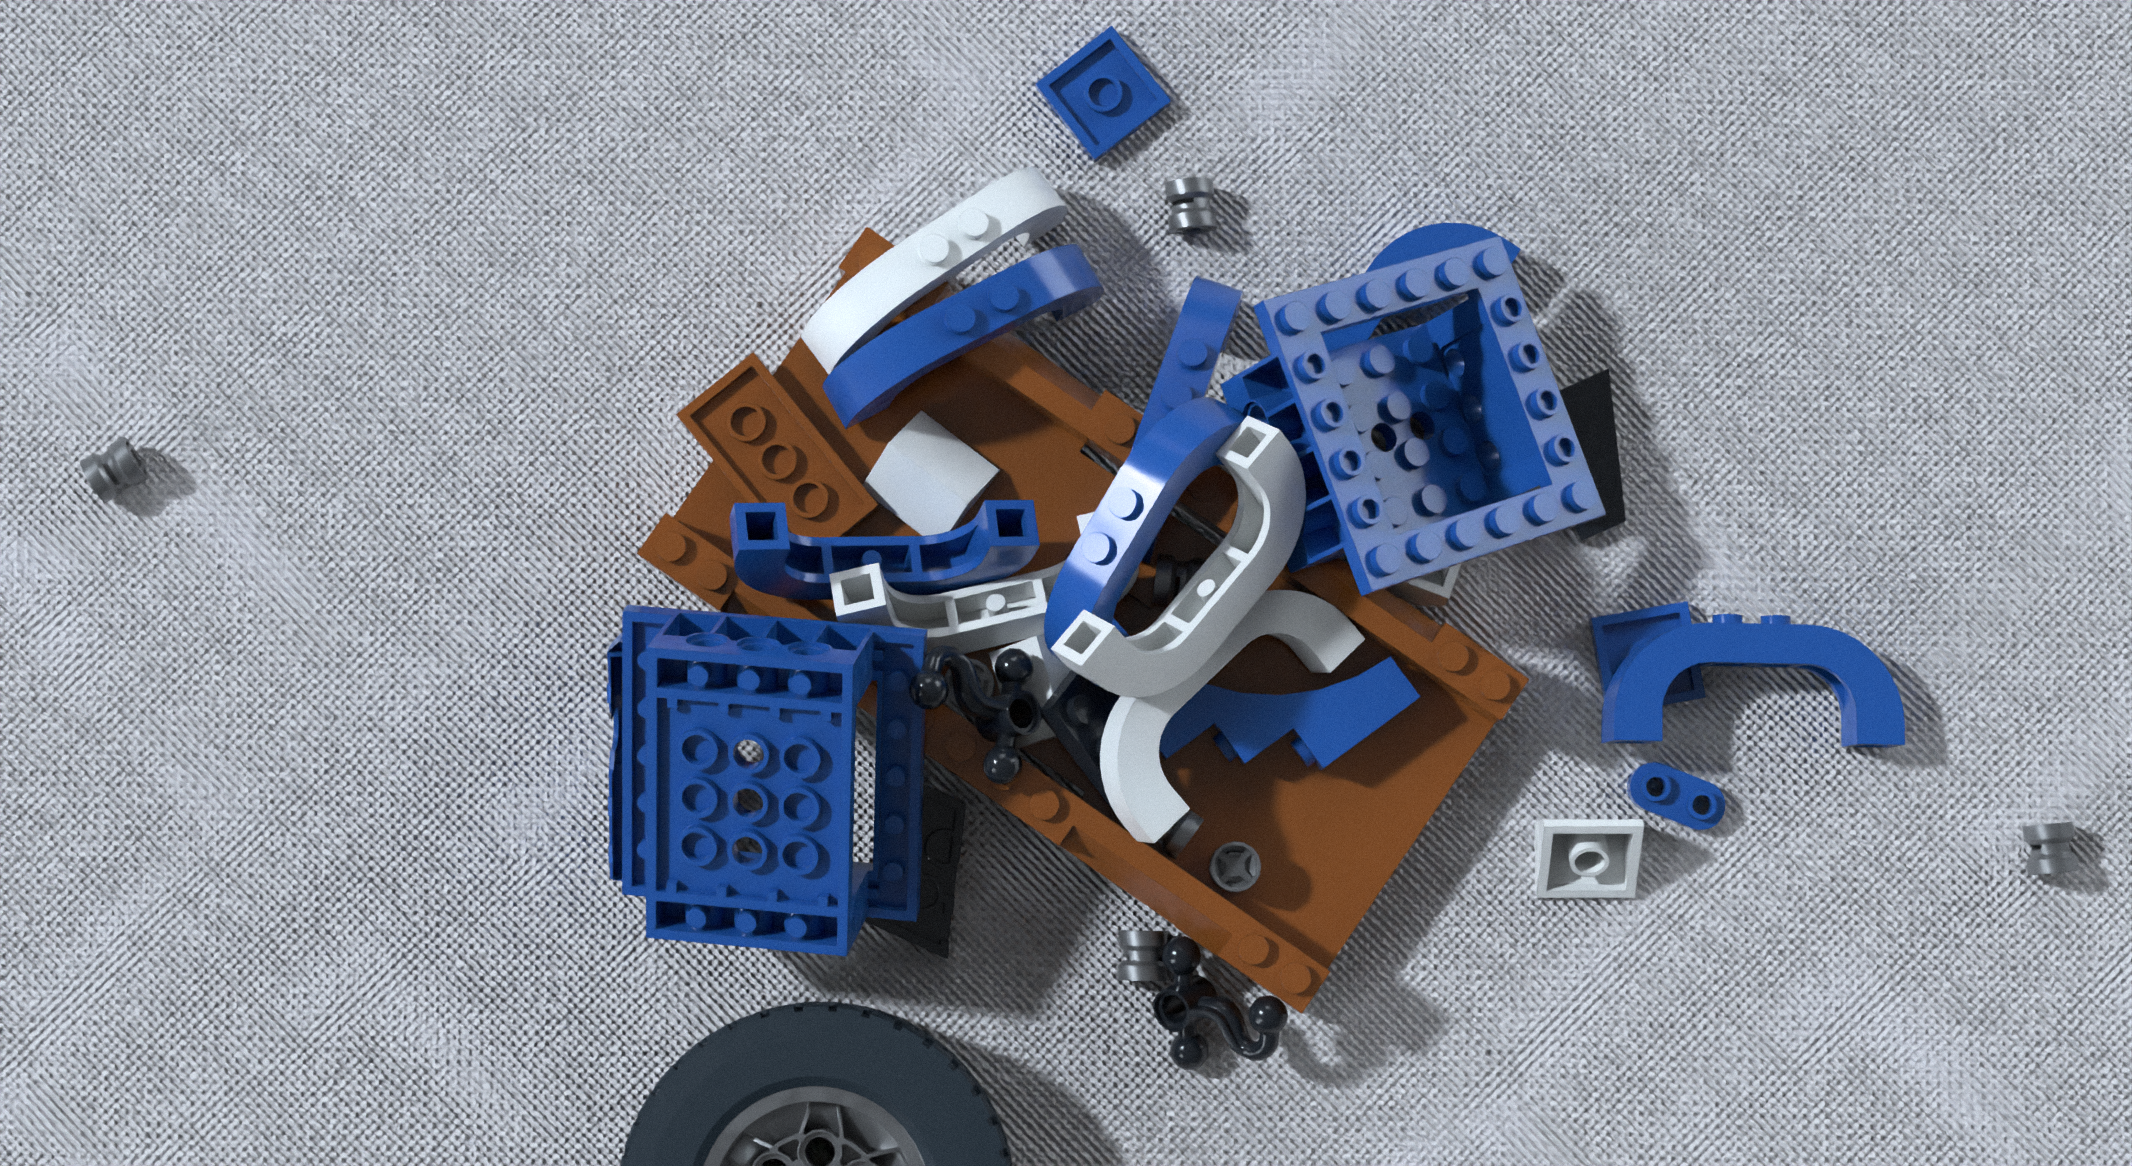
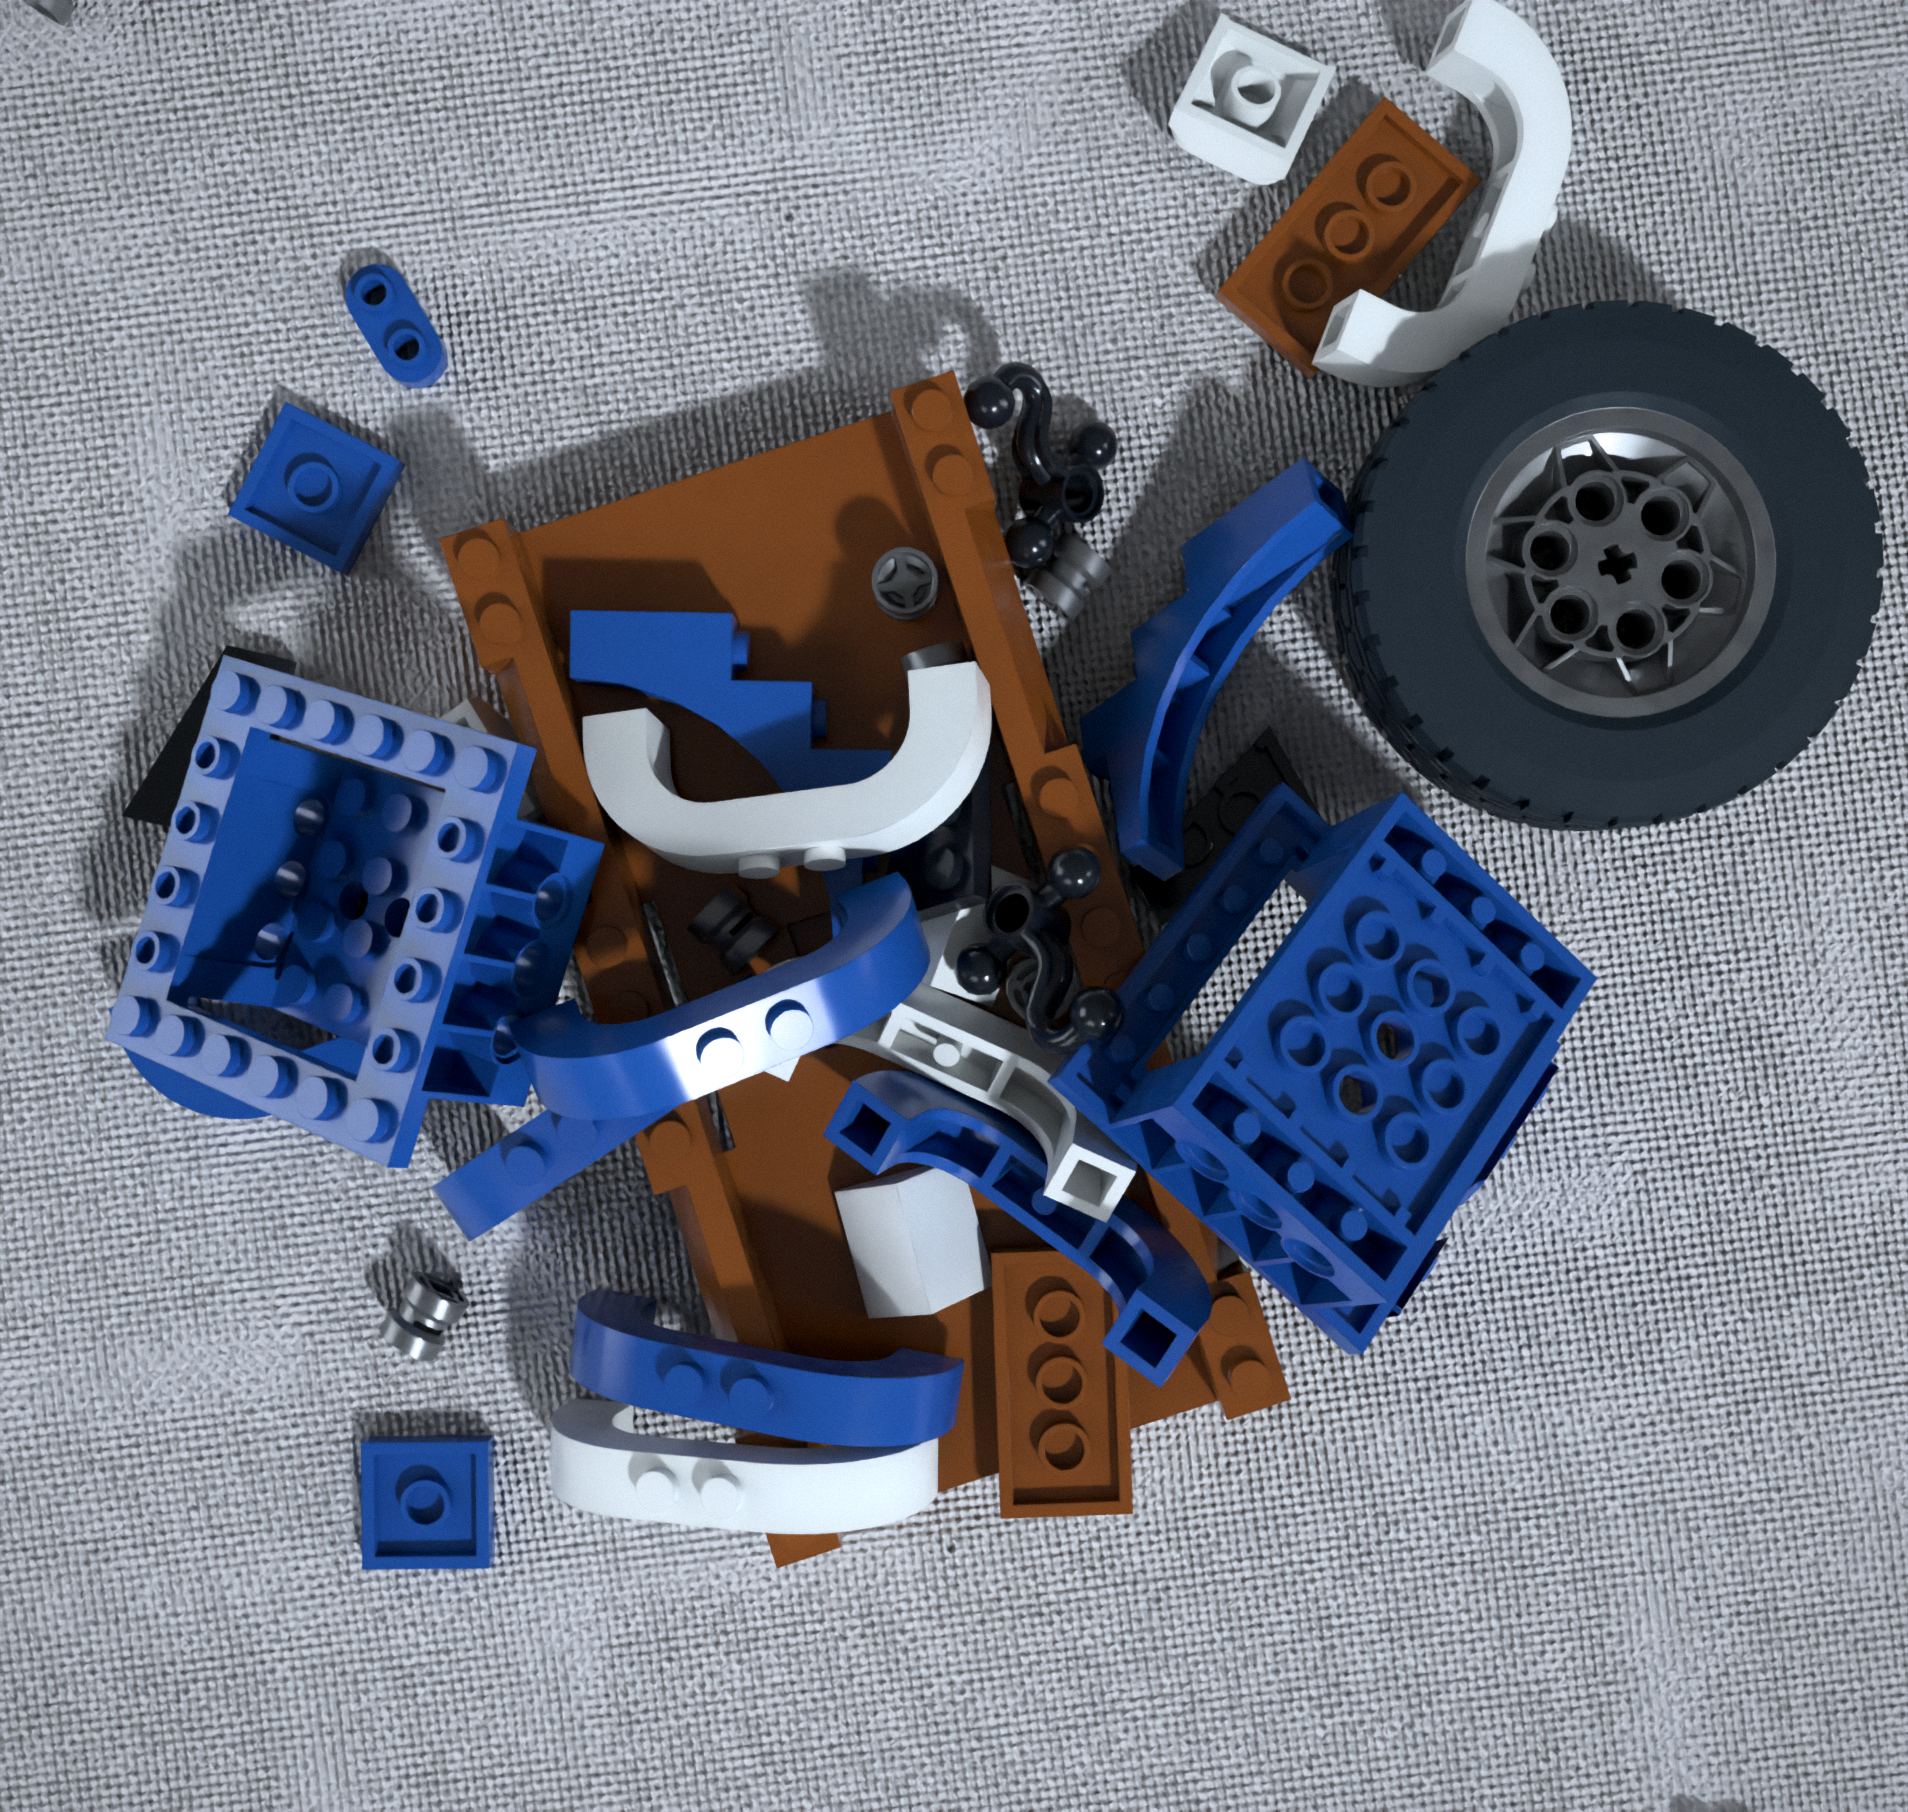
camera: 145 degrees left, 5 degrees up
(1034, 963) = (1184, 653): none -> blue arch
(1223, 588) = (687, 877): white arch -> none
(1587, 858) = (532, 331): white slope -> none
(1862, 684) = (111, 305): blue arch -> none

